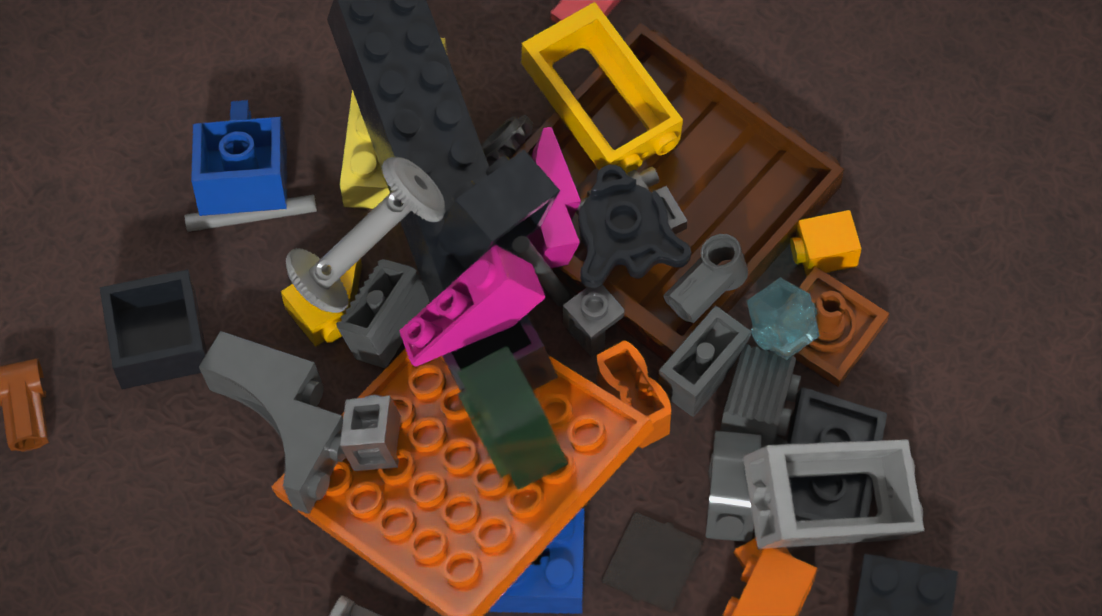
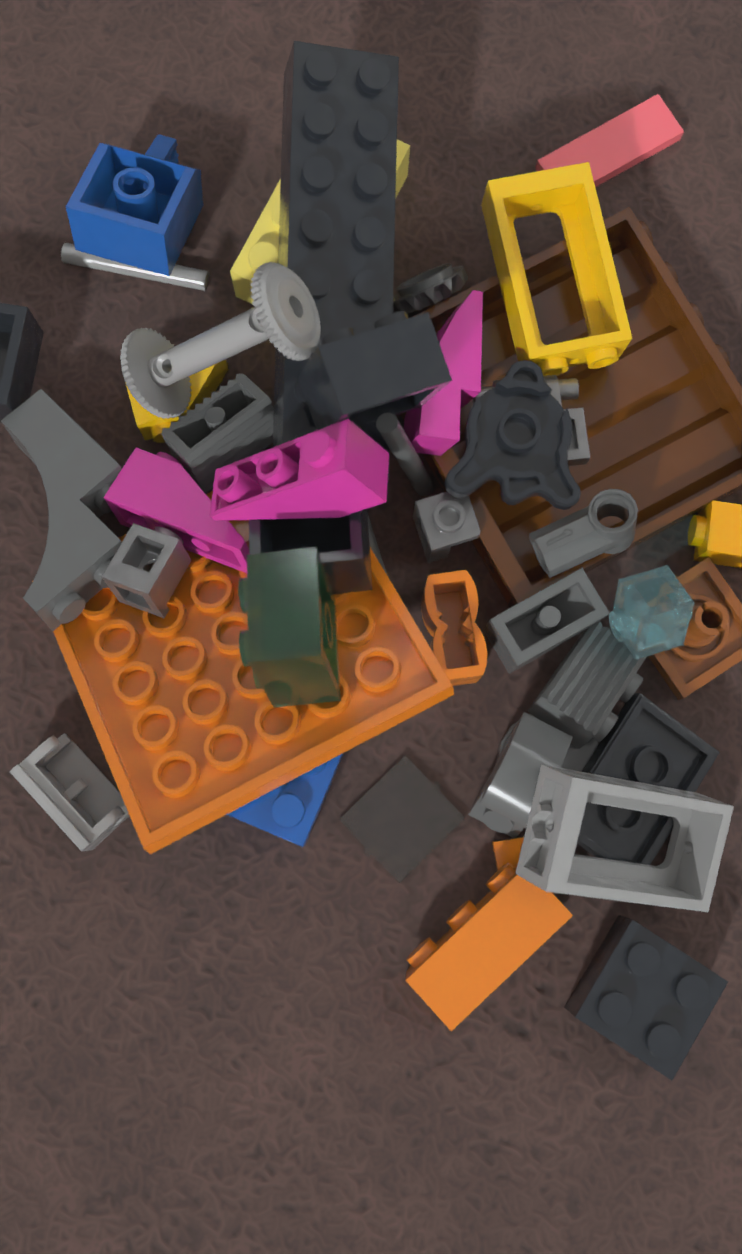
camera: 15 degrees right, 15 degrees up
(361, 371) = (162, 494): none -> dark pink slope

